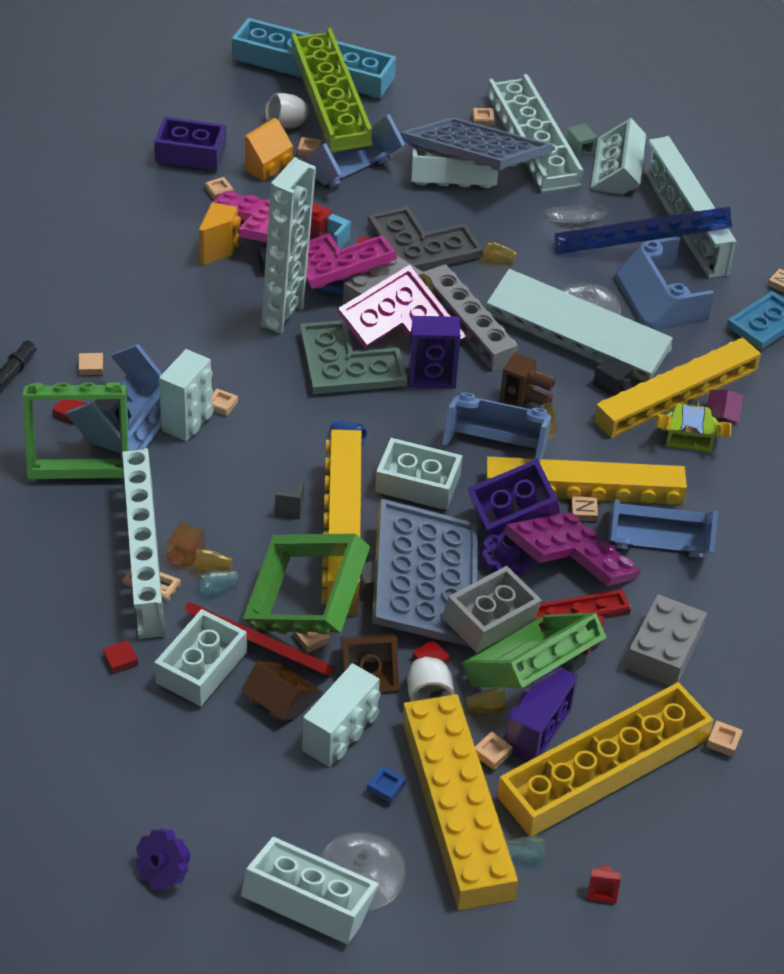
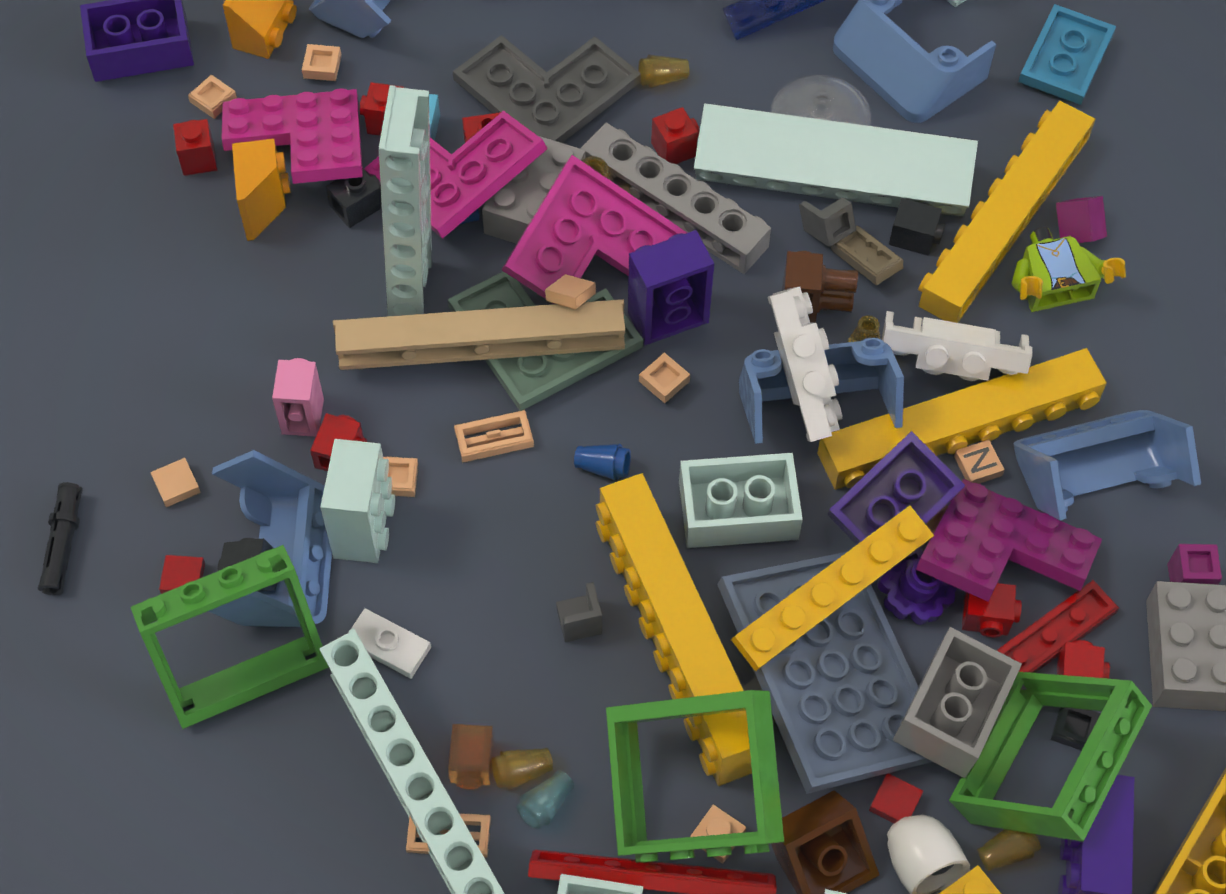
camera: 20 degrees left, 15 degrees up
(170, 479) = (391, 643): none -> white plate
(182, 334) = (298, 397): none -> bright pink brick
(193, 206) = (195, 147): none -> red brick
(290, 401) = (495, 441): none -> light nougat tile
(308, 342) = (479, 334): none -> tan tile
(371, 334) = (570, 291): none -> light nougat tile
(410, 403) = (664, 377): none -> light nougat plate
(444, 523) = (831, 588): none -> yellow plate
(484, 284) = (675, 136): none -> red brick
(490, 409) = (805, 363): none -> white bracket
(546, 580) = (992, 617): none -> red brick
(558, 356) = (830, 223): none -> dark grey panel
(573, 381) = (868, 256): none -> dark tan plate
(598, 439) = (956, 348): none -> white bracket
(692, 595) = (1195, 564): none -> magenta panel

